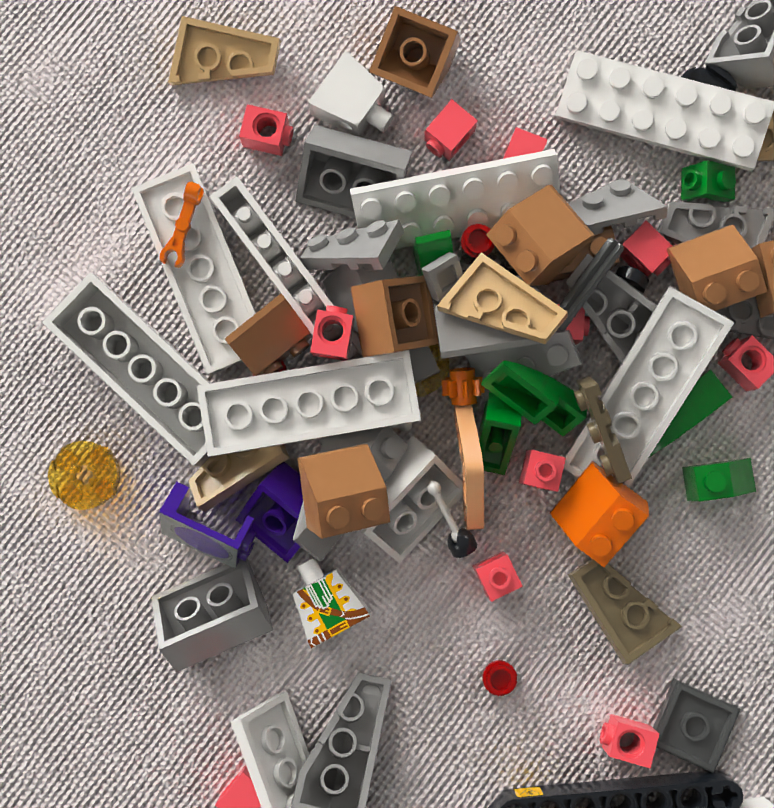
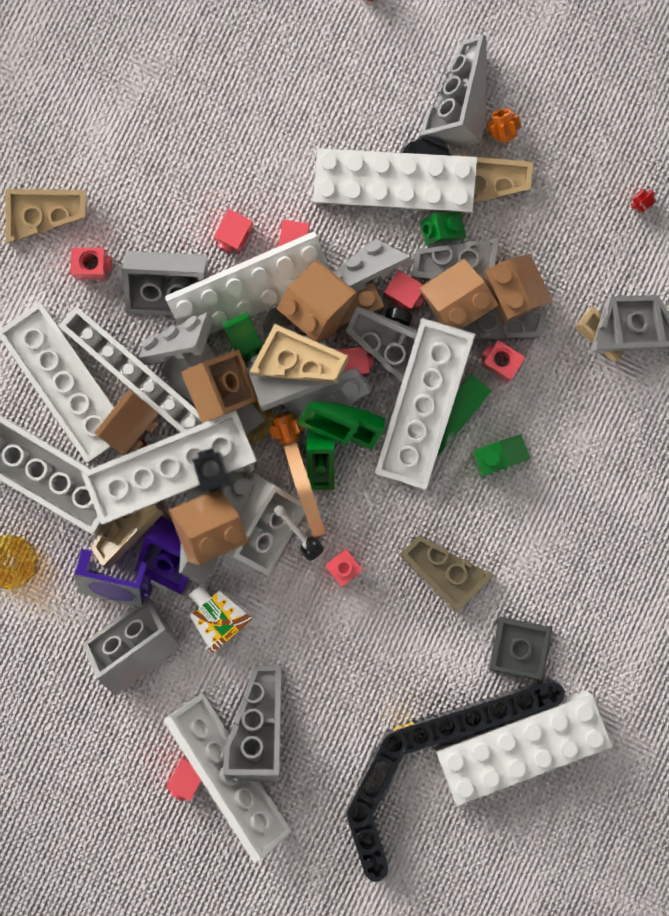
camera: 10 degrees left, 0 degrees up
(192, 196) = (45, 328): orange piece -> none
(332, 349) = (180, 422): coral brick -> none
(350, 98) = (151, 224): white torso -> none
(359, 436) = (220, 480): none -> black brick
(415, 52) = (192, 179): medium nougat slope -> none
(442, 275) = (249, 347): light grey plate -> none
(476, 241) = (270, 315): red plate -> none
(499, 678) = (363, 645): red plate -> none
(542, 470) = (360, 479): coral brick -> none
(590, 279) = (361, 327): dark grey axle -> none
(599, 429) = (396, 438): dark tan wing -> none
(599, 514) = (410, 502): orange slope -> none
(639, 751) = (482, 675): coral brick -> none

